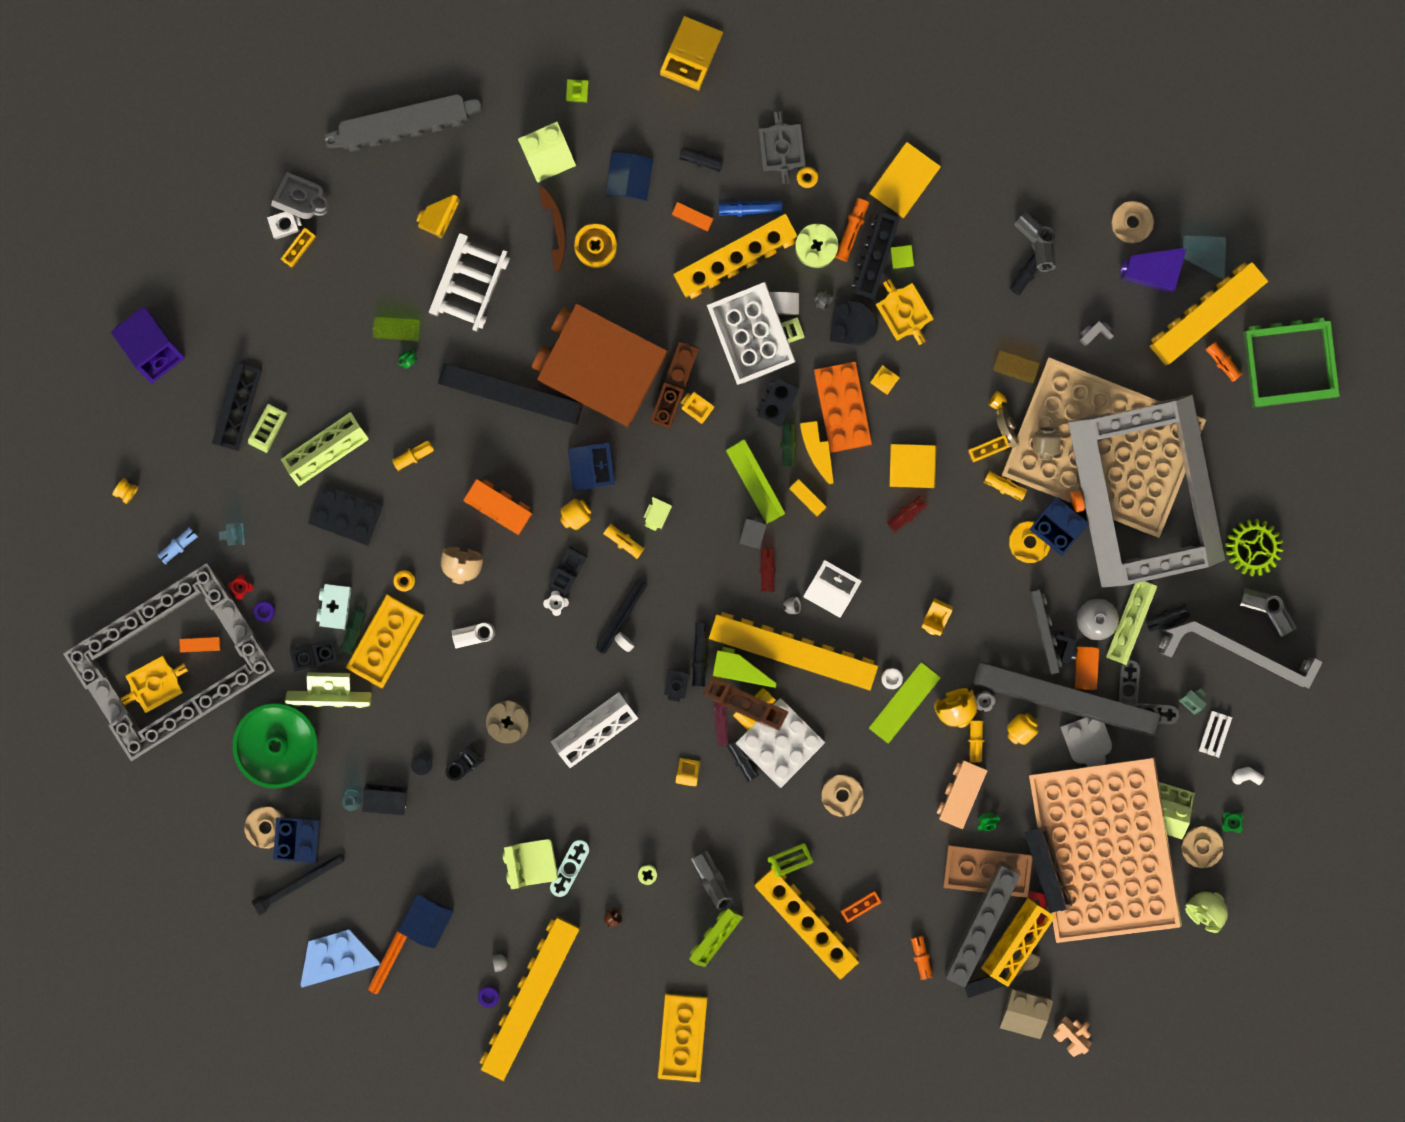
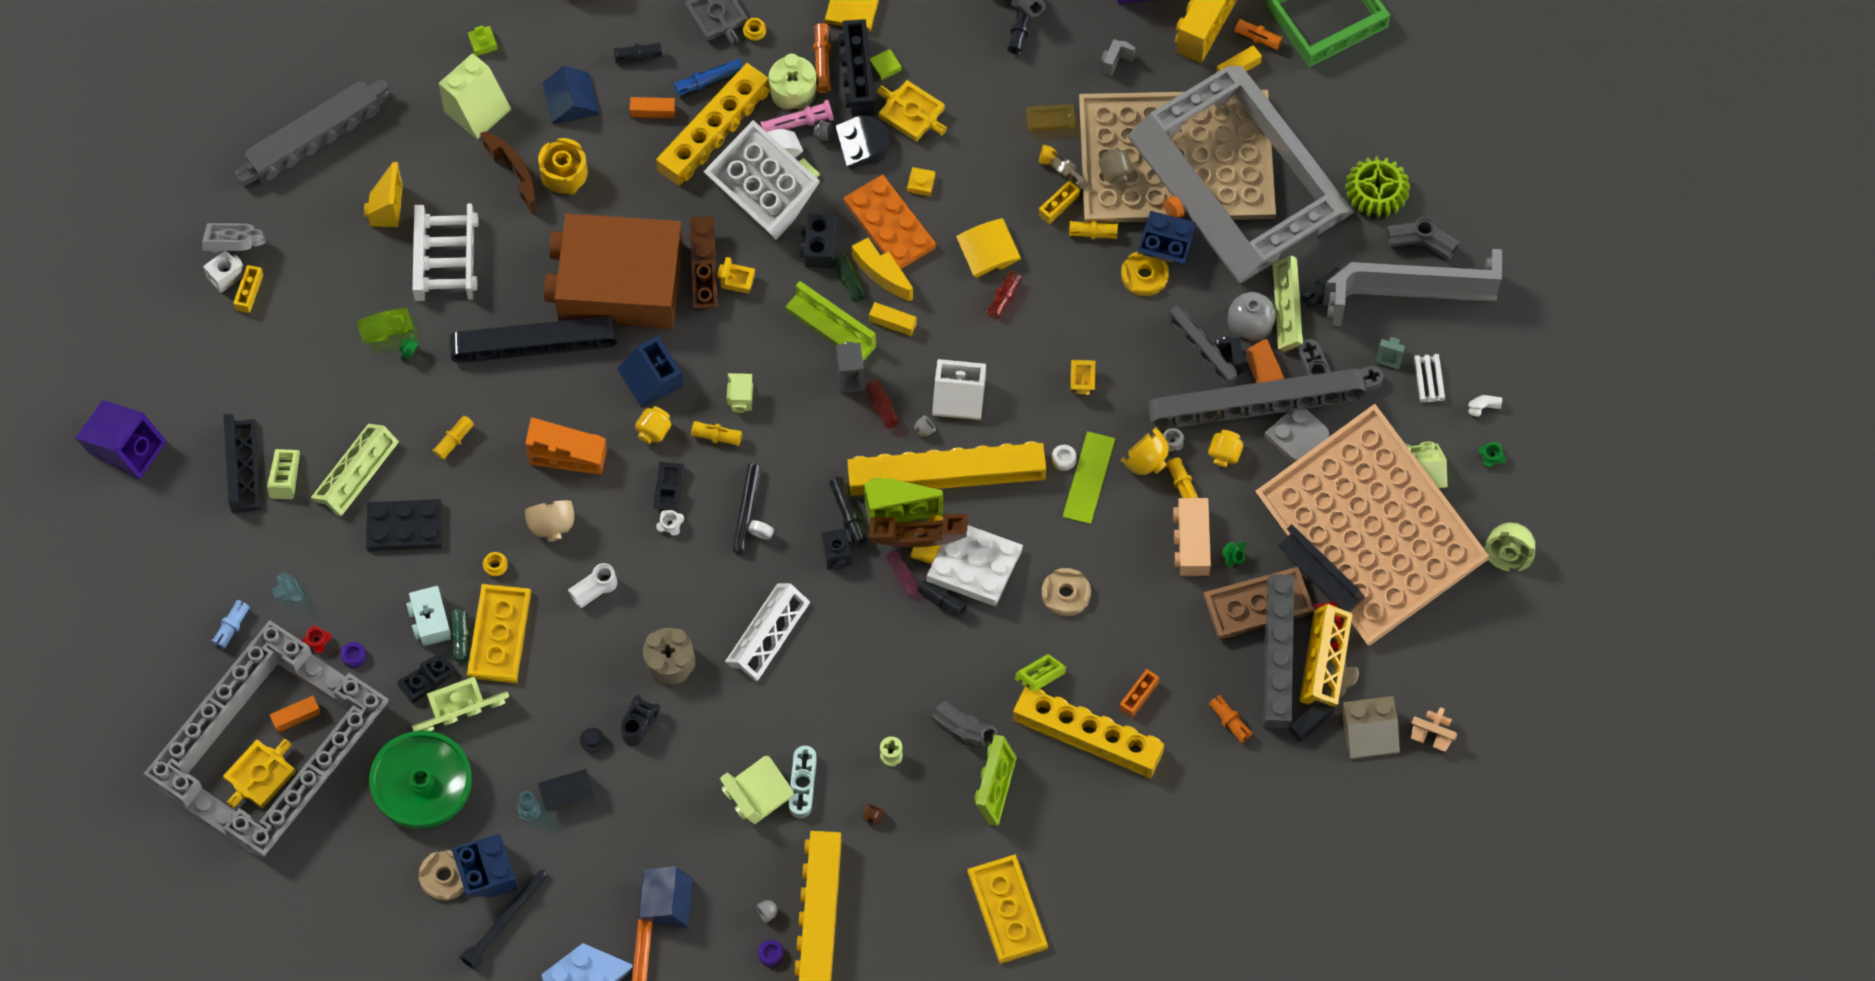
camera: 20 degrees left, 25 degrees down
(125, 490) = (151, 590): yellow wheel -> none
(687, 772) = (888, 635): yellow slope -> none
(816, 280) = (808, 112): none -> bright pink pin
(1194, 383) = (1247, 59): none -> yellow piece
(1202, 847) = (1473, 492): tan tile -> none

